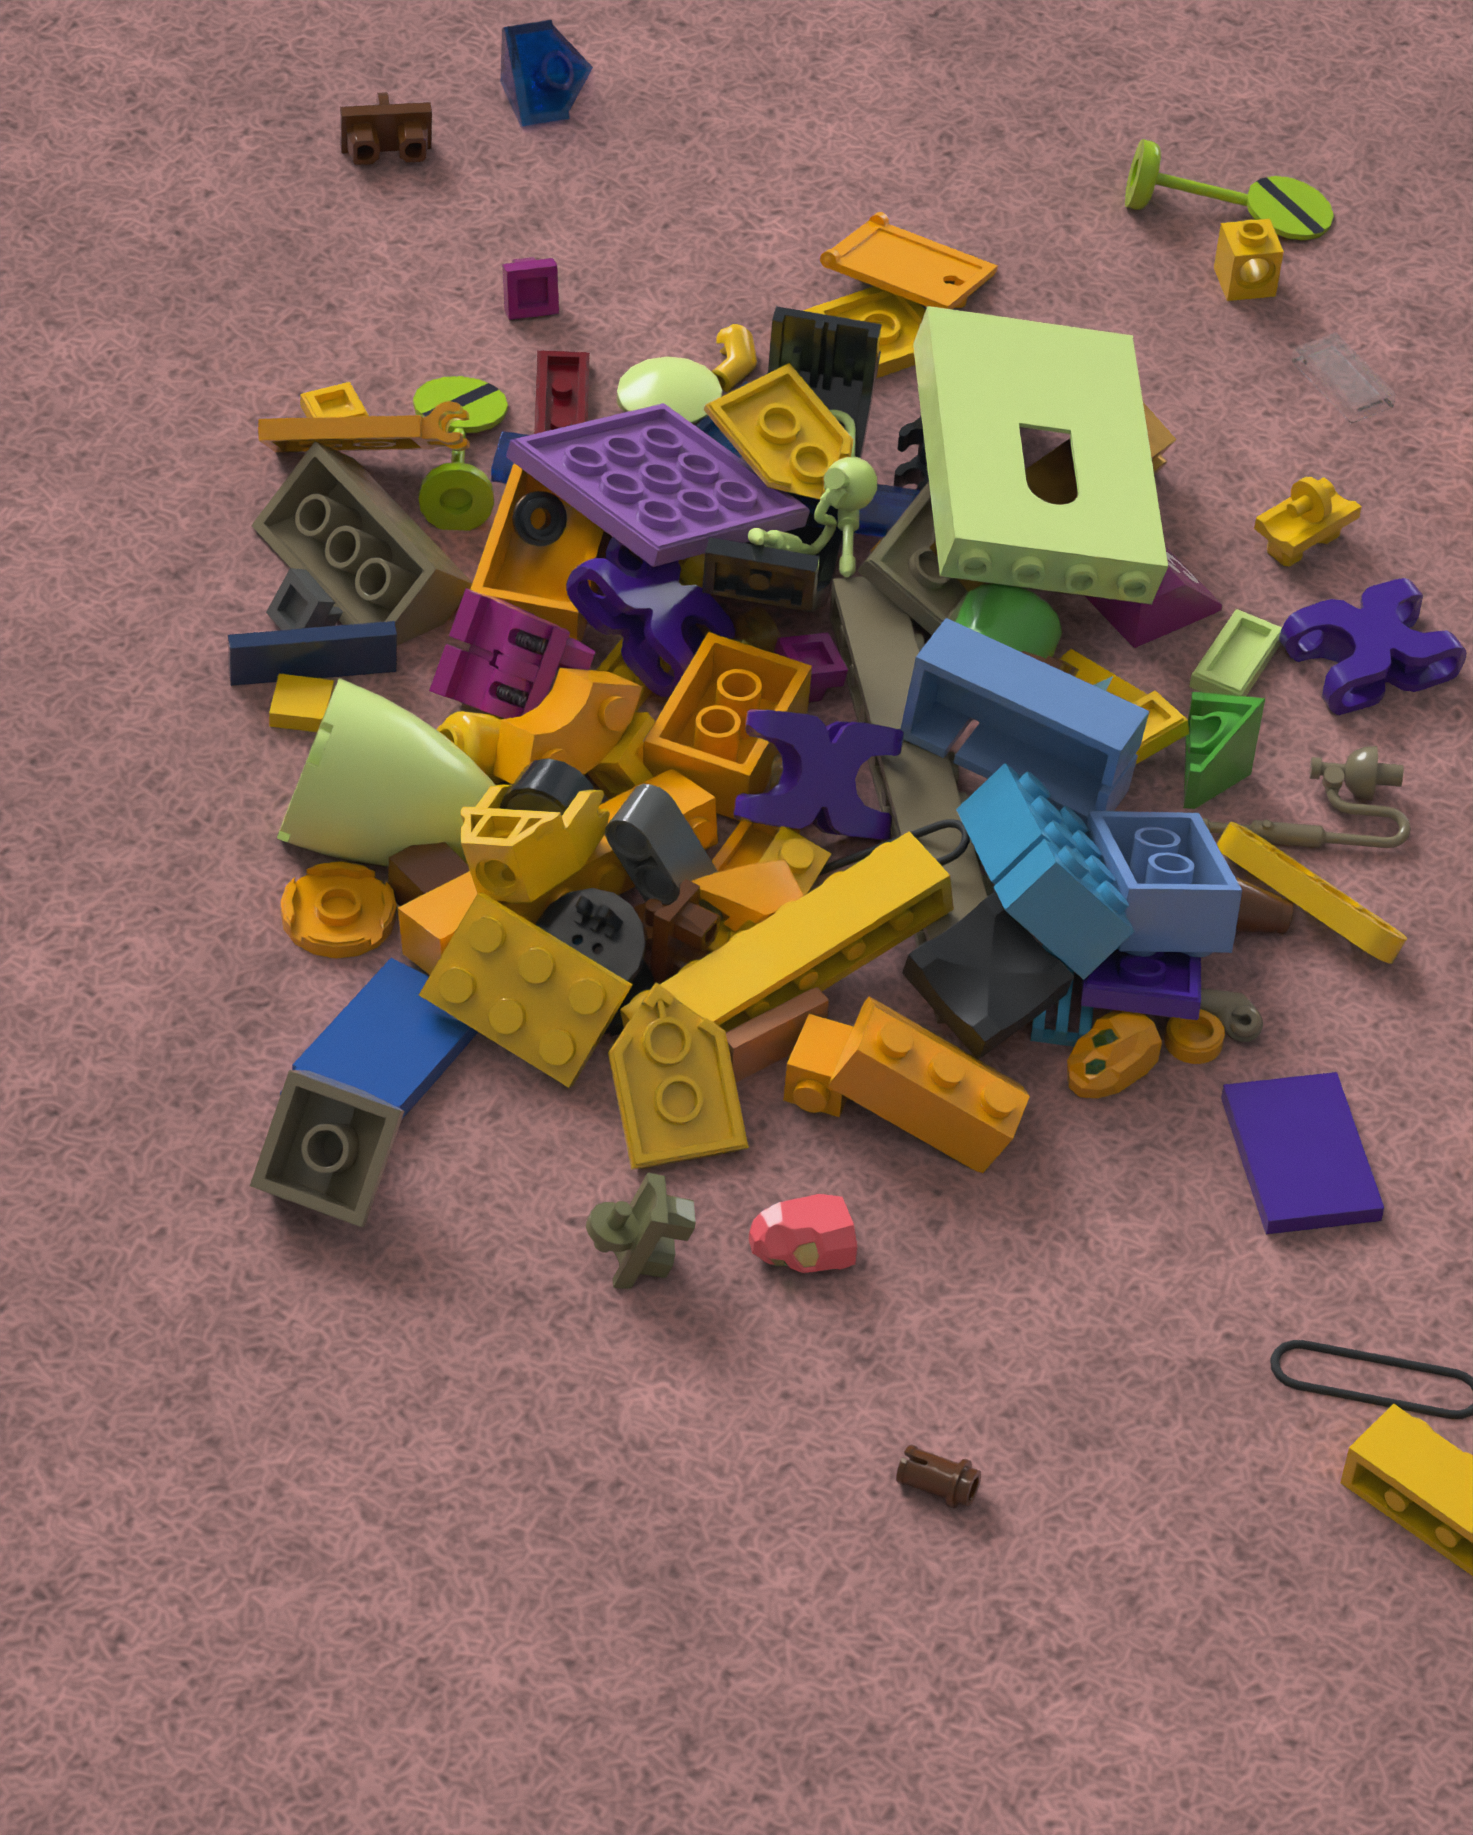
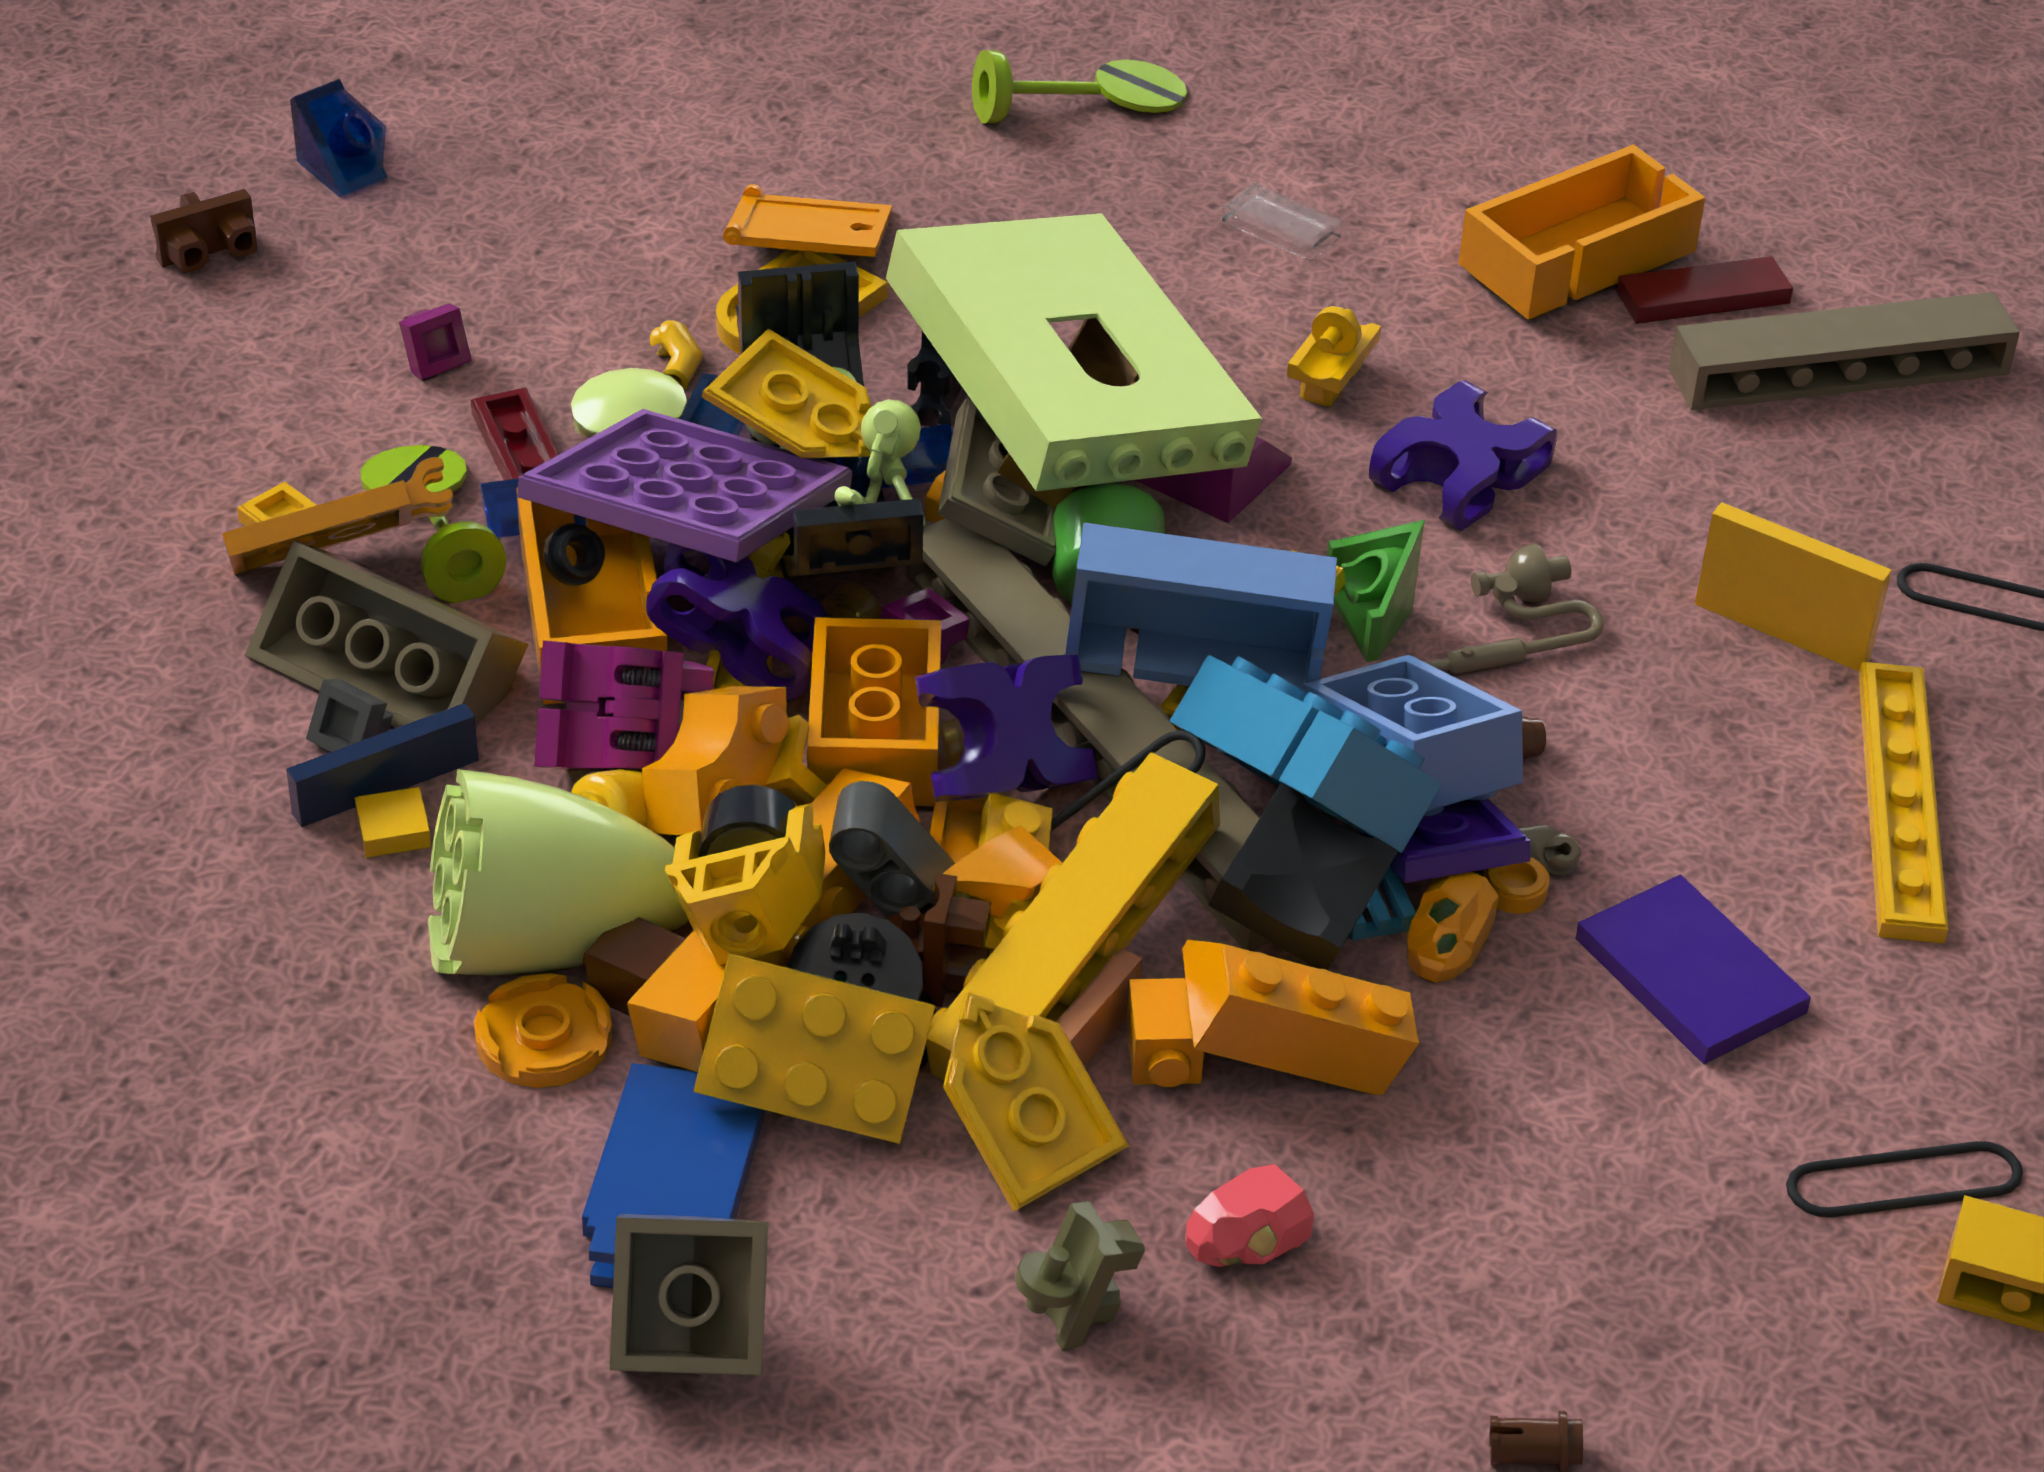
camera: 20 degrees left, 5 degrees down
(1237, 656) = (1335, 500): yellowish green tile -> none
(1248, 259) = (1136, 136): yellow brick -> none
(1311, 893) = (1565, 707): yellow beam -> none

